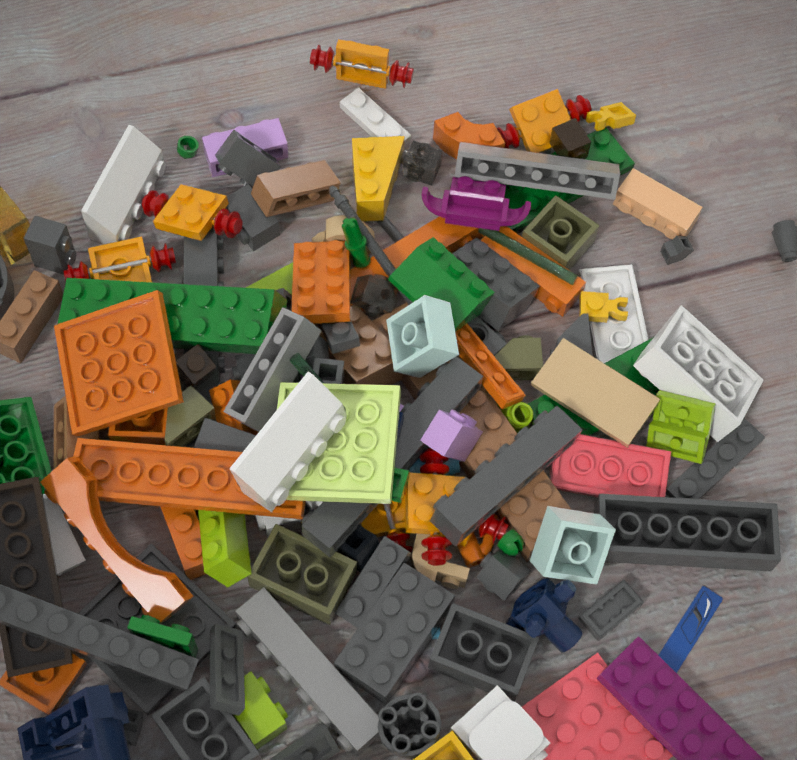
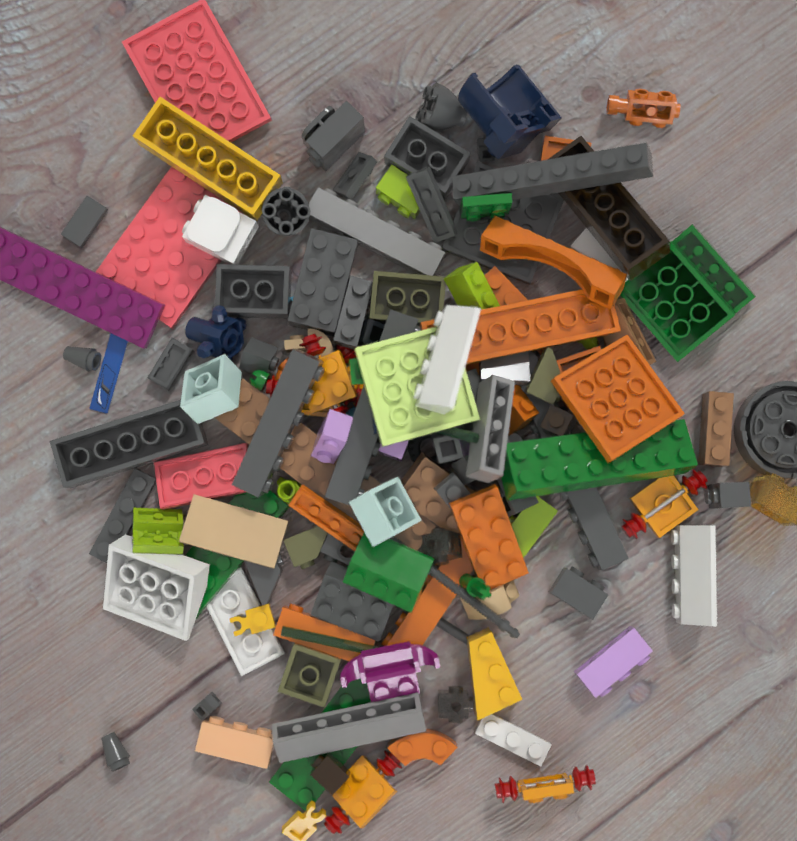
camera: 165 degrees right, 20 degrees up
(192, 147) = (657, 644): green hinge -> none
(192, 213) = (626, 570): light orange plate -> none
(244, 159) = (602, 639): dark grey brick -> none
(294, 188) = (551, 631): medium nougat brick -> none
(714, 655) = (84, 358): none -> dark grey cone

